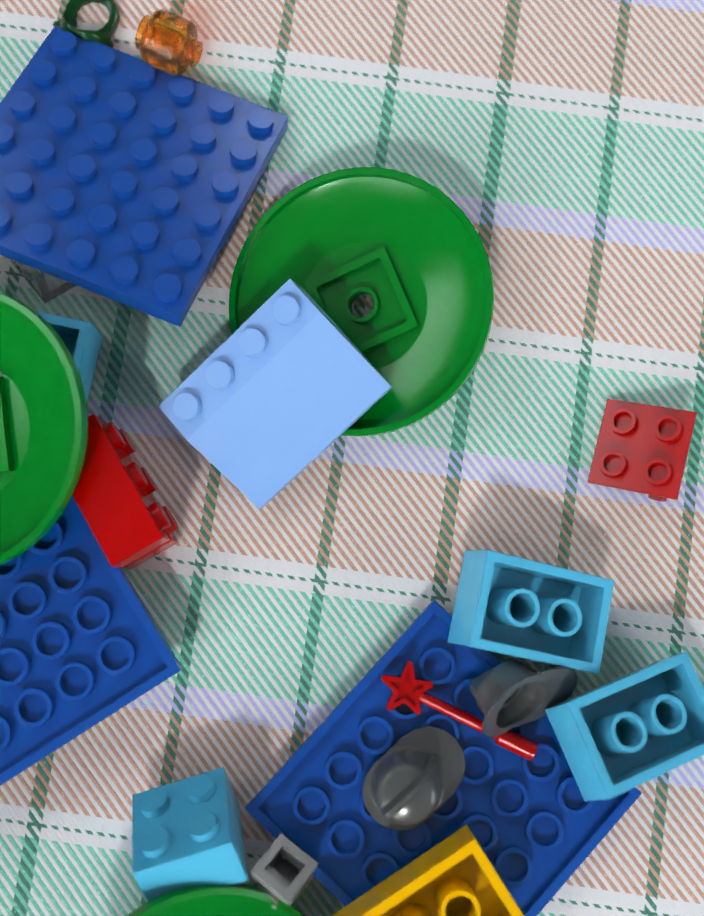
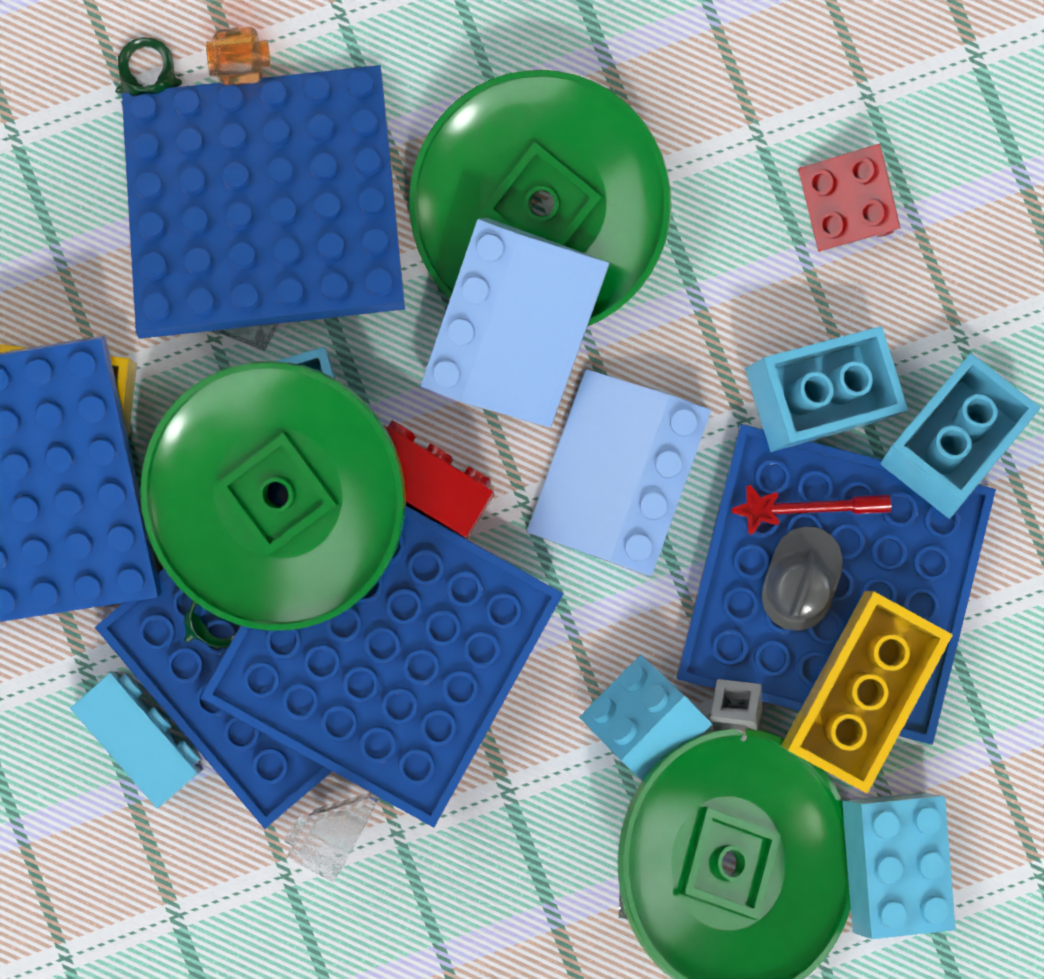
camera: 30 degrees left, 5 degrees up
(298, 585) = (619, 471): none -> light blue slope
(518, 695) = (852, 462): dark grey piece -> none

